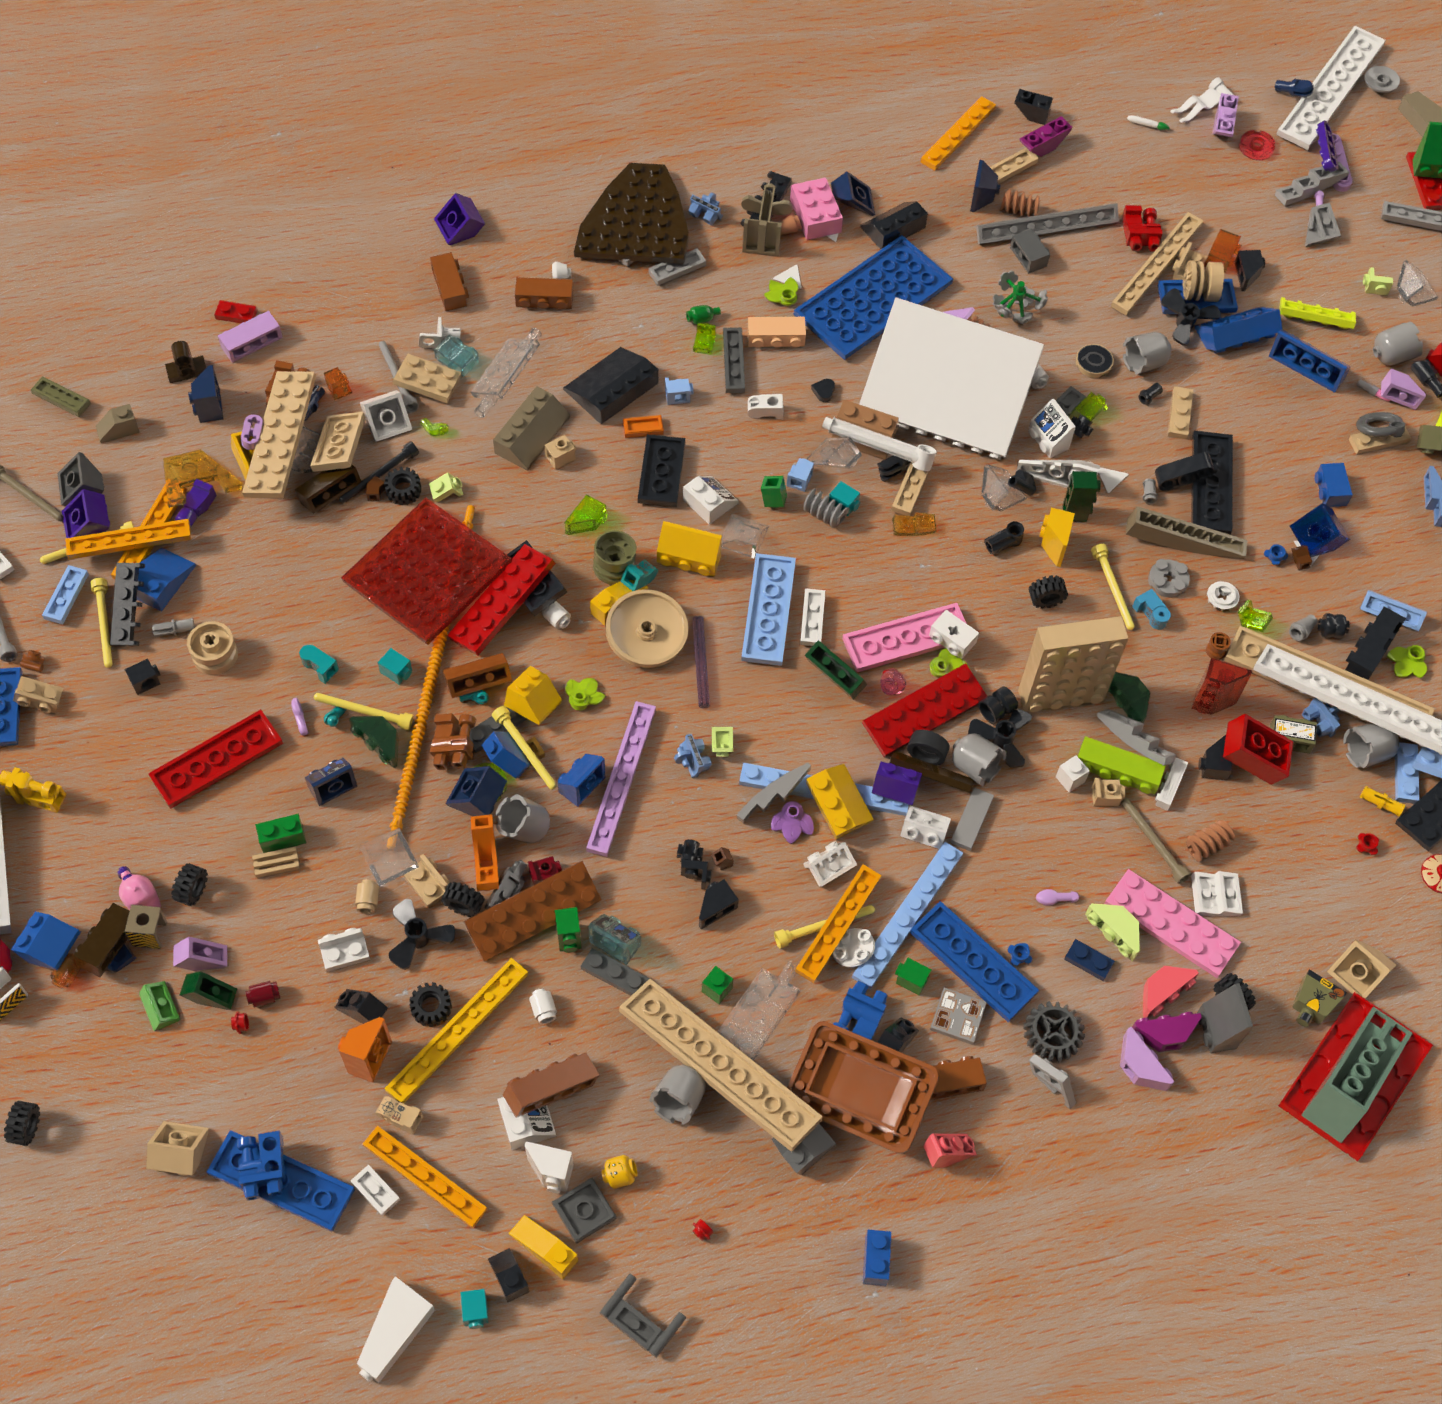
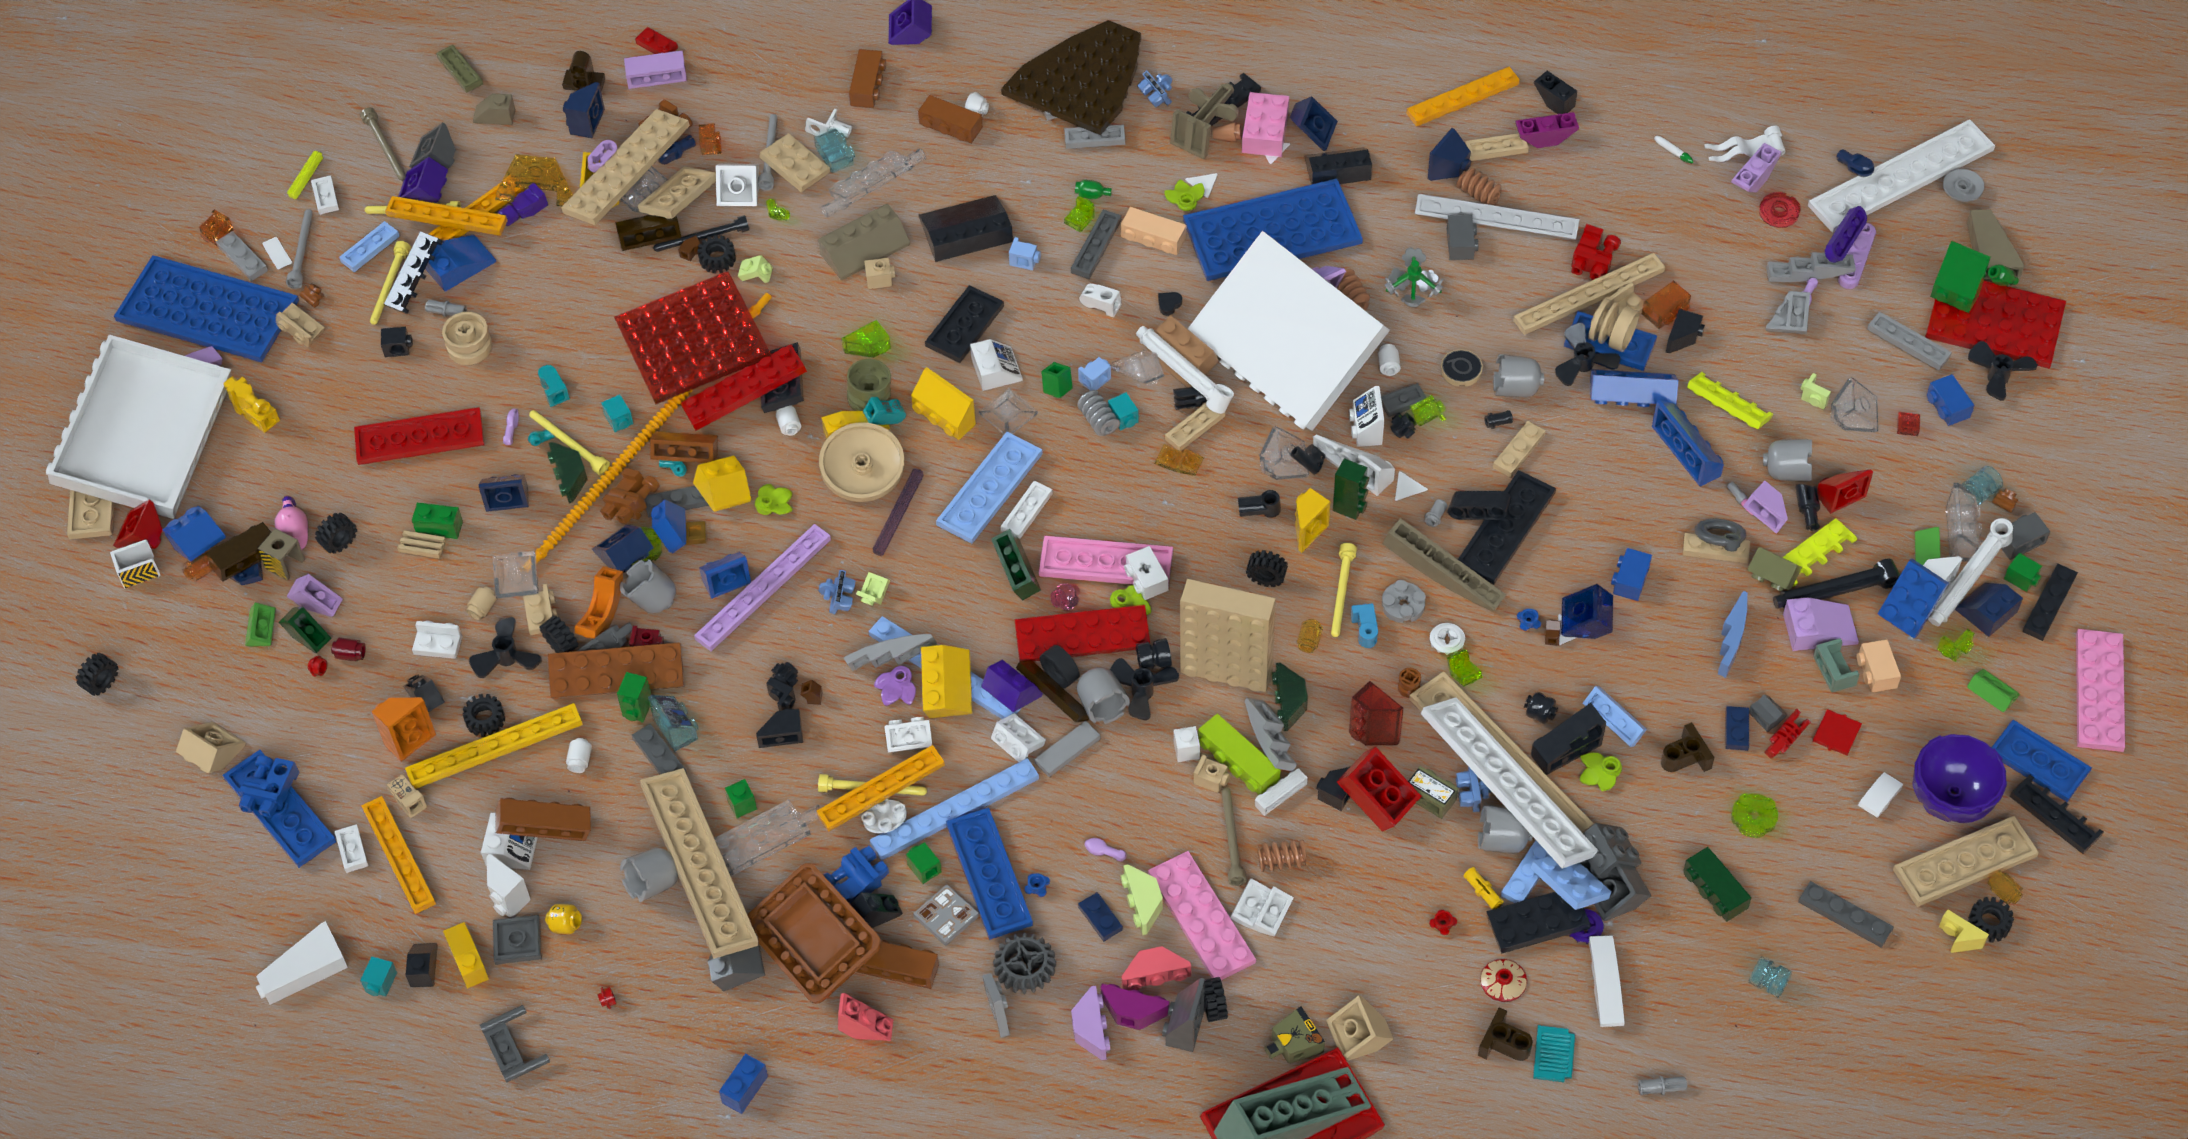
camera: 30 degrees right, 5 degrees down
(502, 716) = (684, 491): light yellow piece -> none
(642, 426) = (973, 276): orange tile -> none
(1302, 628) = (1509, 698): light grey cone -> none

